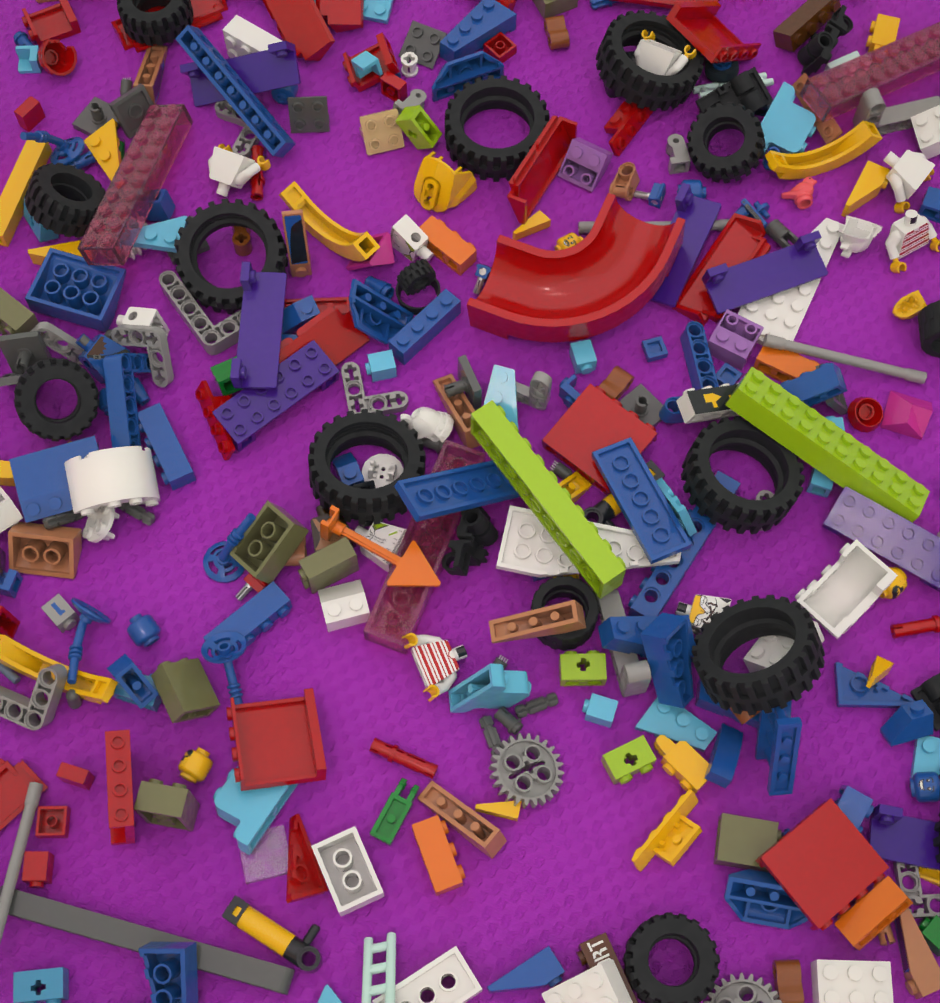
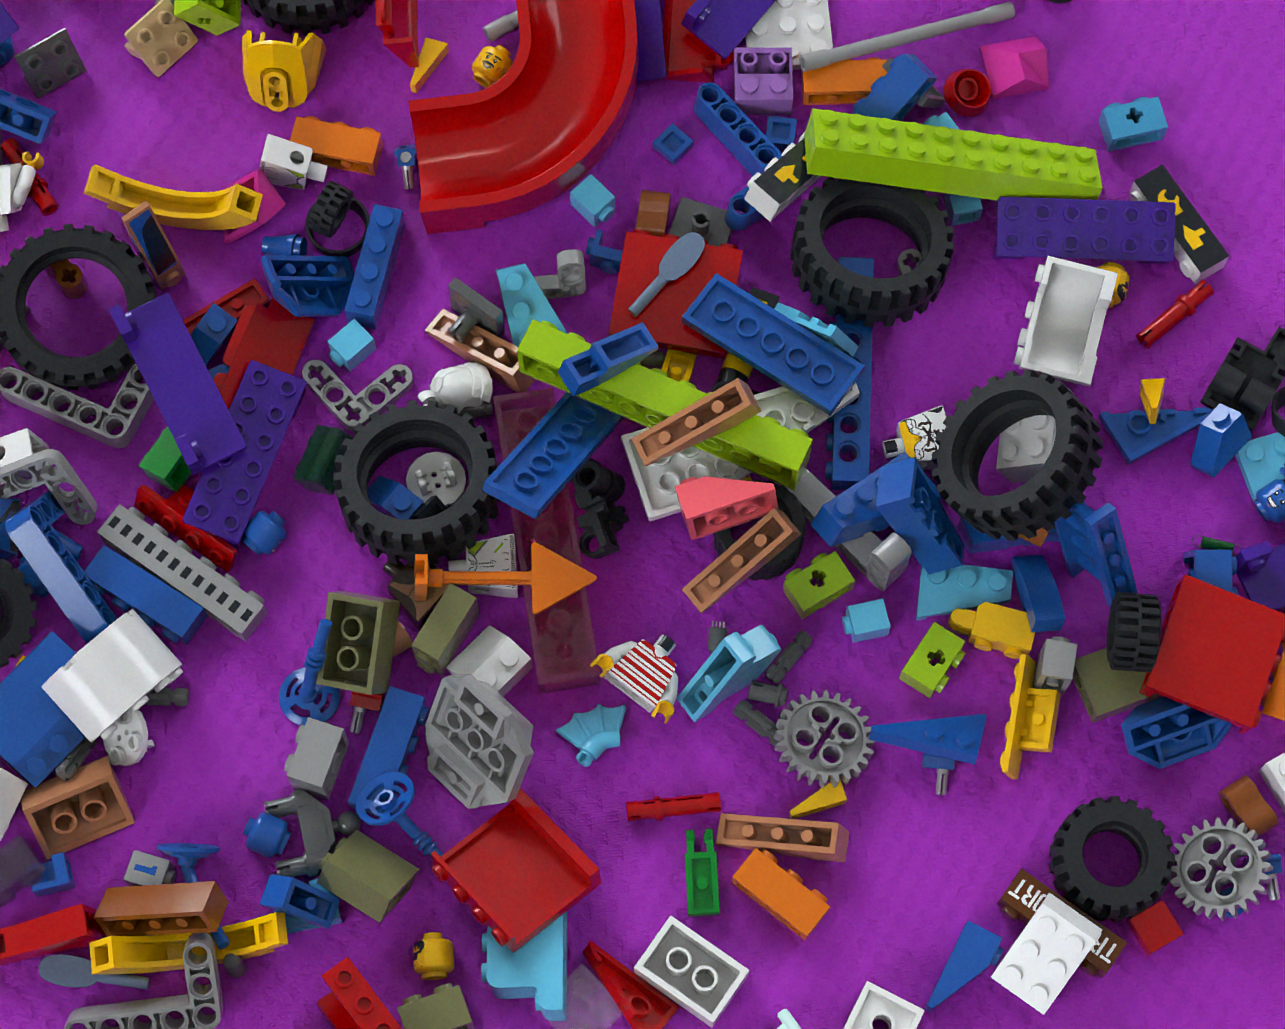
camera: 30 degrees left, 5 degrees up
(48, 638) = (161, 909): none -> dark orange brick
(175, 645) = (316, 828): none -> dark grey connector
(197, 446) = (178, 568): none -> light grey brick
(201, 600) = (317, 758): none -> light grey brick
(259, 448) = (265, 532): none -> blue head
(303, 645) = (477, 742): none -> light grey piece
(314, 421) = (318, 461): none -> brick
(383, 682) = (594, 732): none -> medium azure arm
(522, 447) = (607, 359): none -> blue slope
(542, 579) = (722, 503): none -> coral slope
(557, 517) = (697, 422): none -> nougat slope
(596, 832) = (942, 765): none -> blue piece
(606, 815) = (944, 737): none -> blue wing
(607, 418) = (674, 264): none -> sand blue piece
(708, 809) = (1055, 664): none -> light grey brick
(772, 816) = (1133, 632): none -> black tyre
(862, 788) = (1215, 544): none -> green piece

